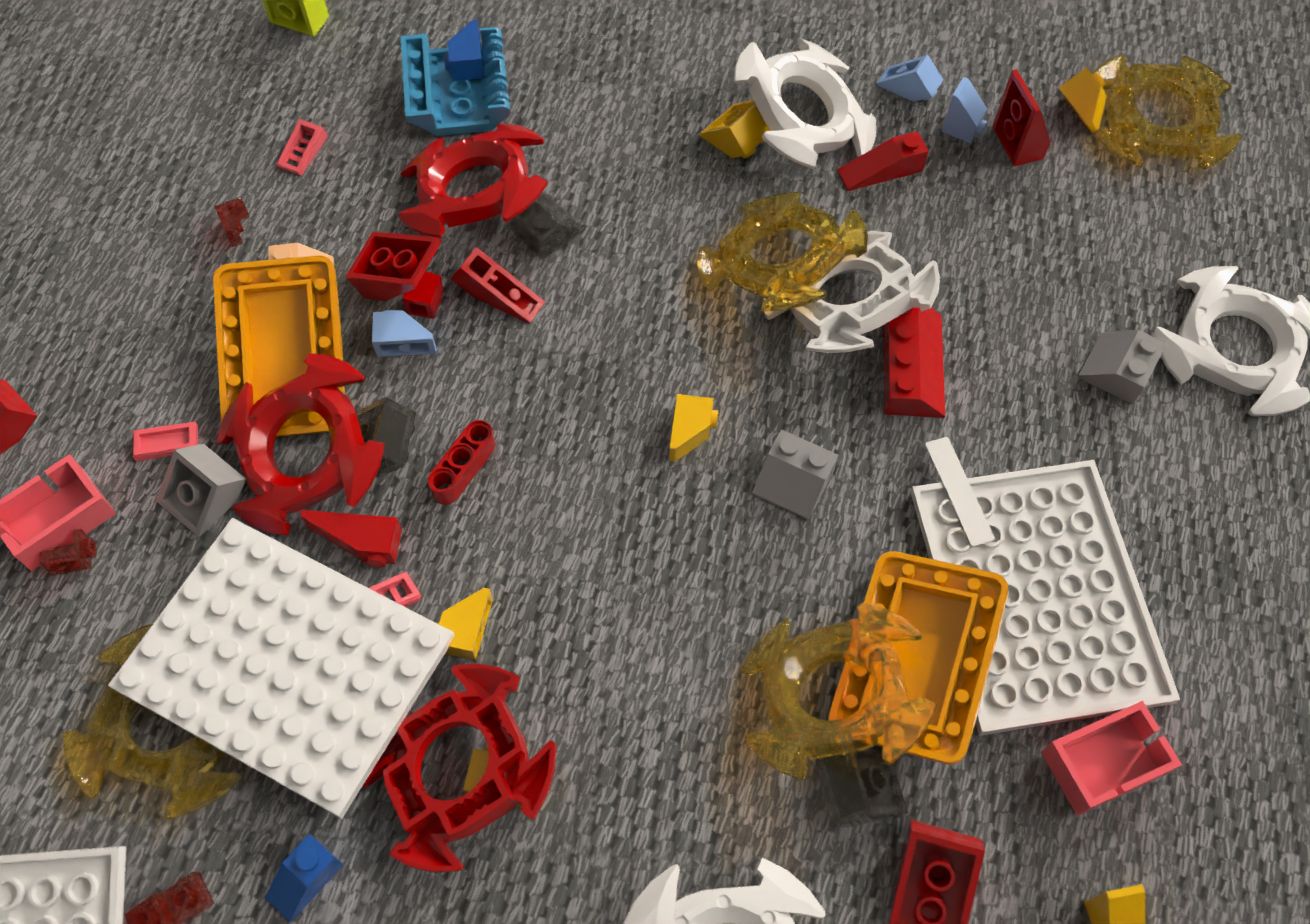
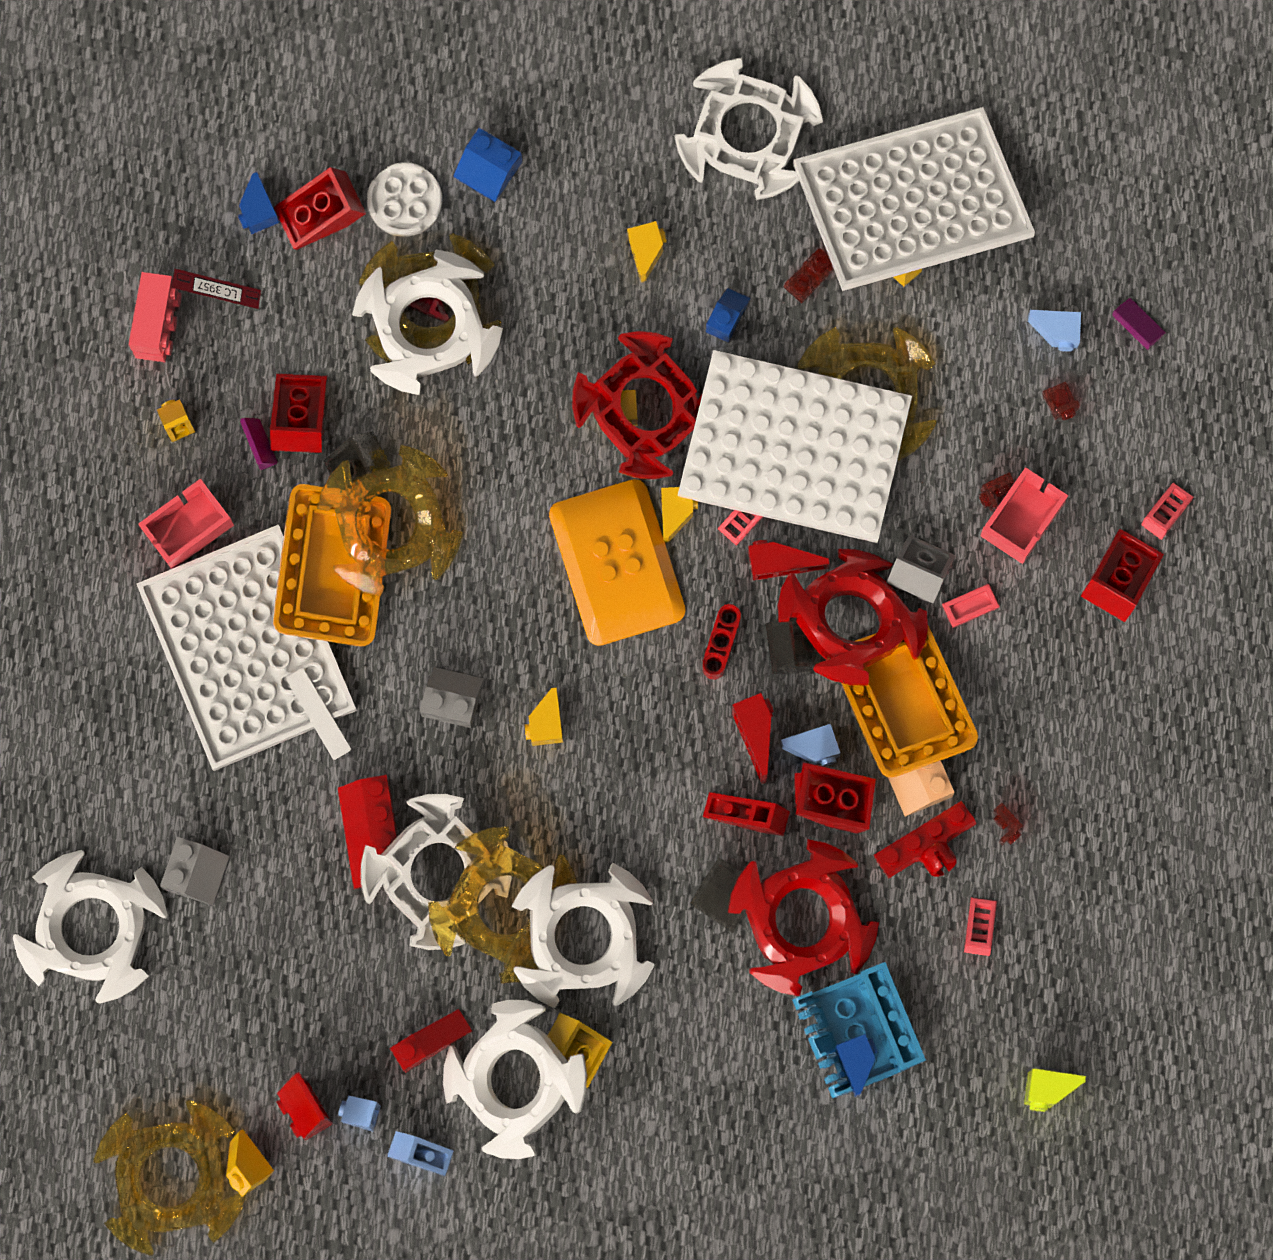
camera: 170 degrees right, 15 degrees up
(321, 222) = (927, 843): none -> red plate
(453, 352) = (754, 724): none -> red slope
(557, 591) = (617, 562): none -> light orange wedge
(675, 187) = (619, 961): none -> white piece
(999, 860) = (258, 442): none -> magenta slope

